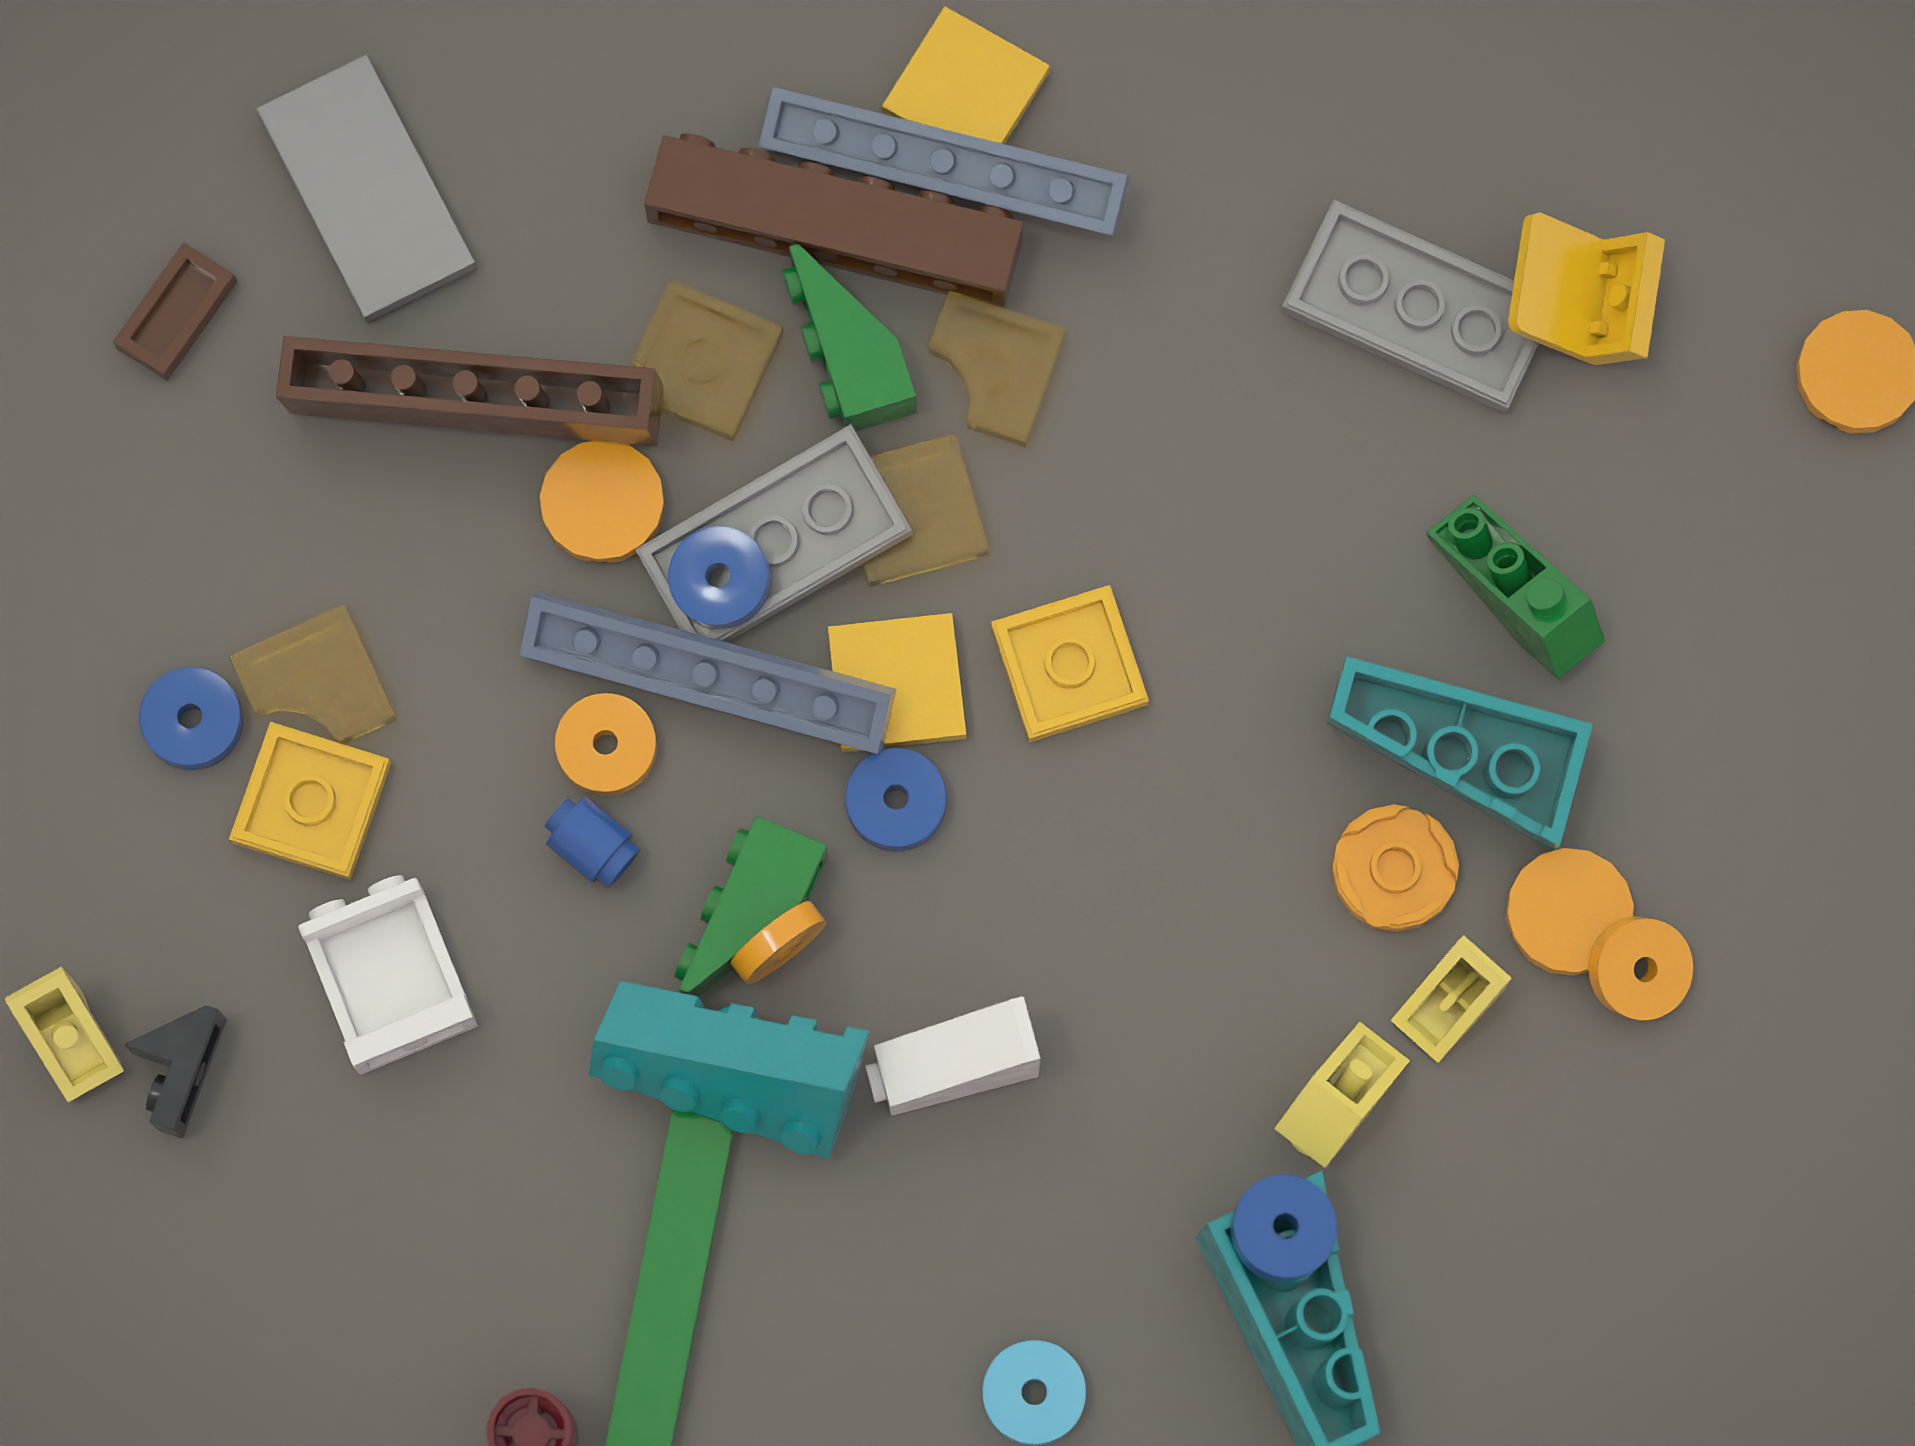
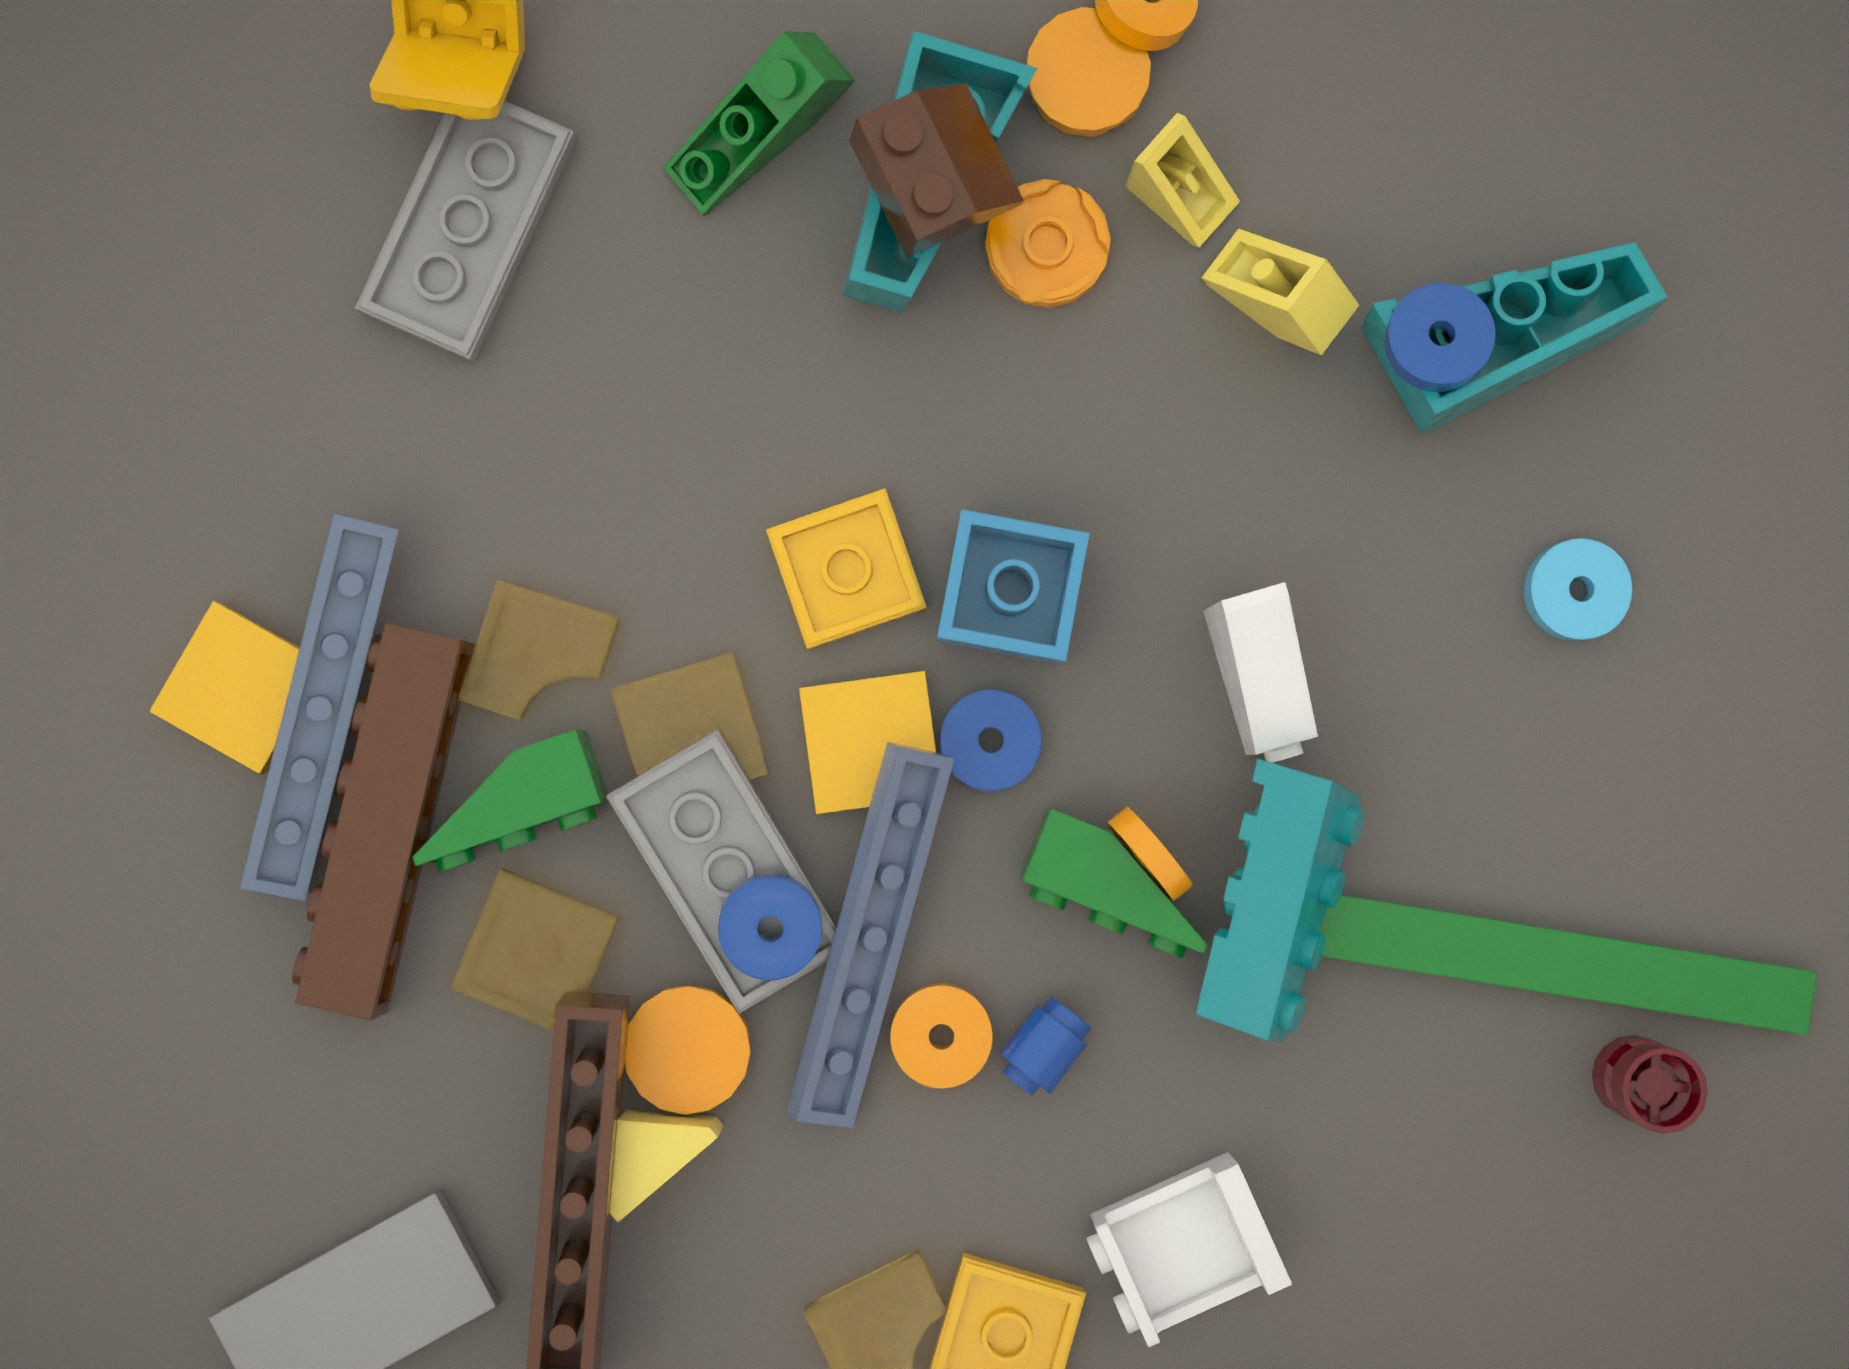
camera: 95 degrees left, 10 degrees up
(505, 462) = (653, 1149): none -> light yellow slope
(1044, 814) = (1013, 587): none -> dark azure brick
(1455, 739) = (933, 166): none -> reddish brown slope

